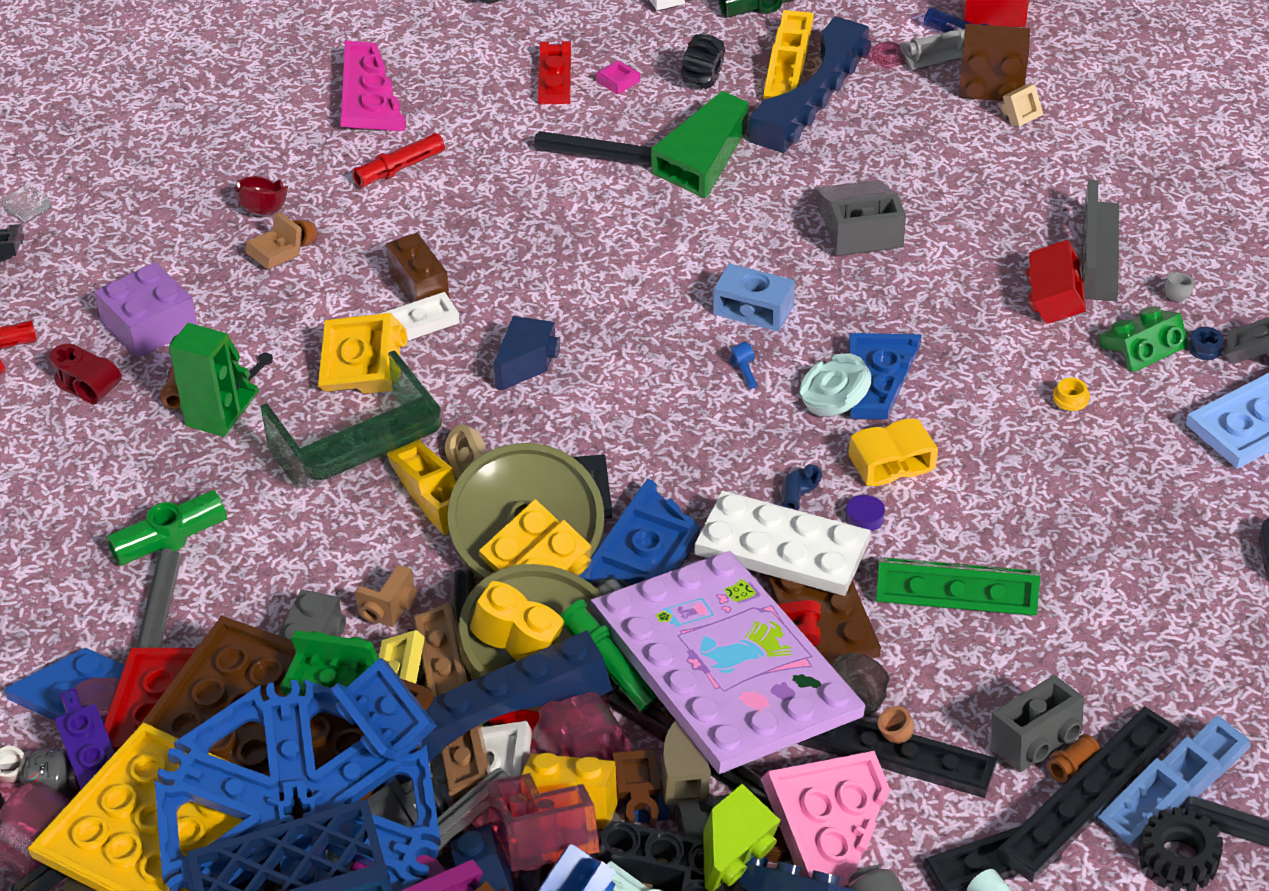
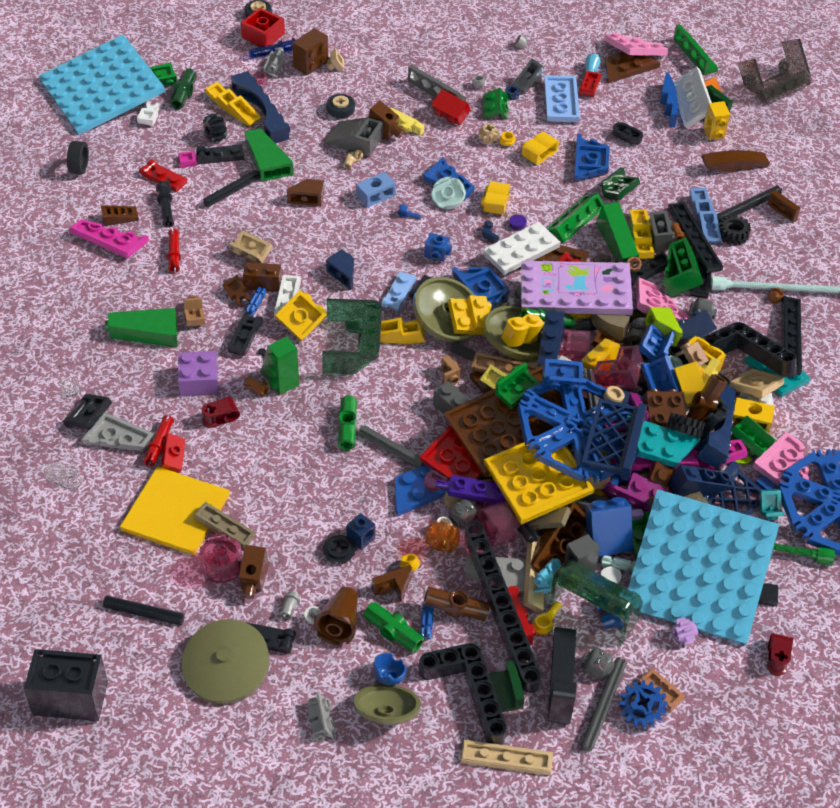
camera: 60 degrees left, 5 degrees up
(208, 212) = (144, 326): none -> green slope
(260, 195) = (154, 301): dark red hair -> none
(280, 318) = (244, 334): none -> black plate
(366, 261) = (236, 290): none -> reddish brown plate
(367, 295) = (255, 301): none -> blue axle
(416, 66) = (113, 214): none -> reddish brown slope
(421, 829) = (614, 394): none -> tan tile
(463, 447) = (392, 310): tan plate -> none
(475, 231) = (251, 246): none -> tan bracket
(501, 97) = (165, 198): none -> black pin
(569, 438) = (399, 291): none -> light blue plate
(659, 98) = (219, 154): none -> black plate
(659, 841) = (655, 343): none -> blue bracket
(666, 227) = (306, 193): none -> reddish brown slope
(680, 434) = (437, 247): none -> blue brick
(809, 237) = (351, 158): none -> tan arm
(918, 163) = (340, 105): none -> black wheel
(922, 236) = (390, 120): none -> reddish brown torso
(958, 660) = (616, 232): none -> green slope
(962, 808) = (682, 268): none -> green wedge
(967, 249) = (409, 124): none -> light yellow hinge
(971, 724) = (641, 233): none -> yellow slope
(1050, 362) = (488, 134): none -> tan gear
(1092, 446) = (540, 148): none -> yellow brick
(1113, 601) = (618, 184): none -> dark green bracket
(1144, 530) = (590, 158): none -> blue wing

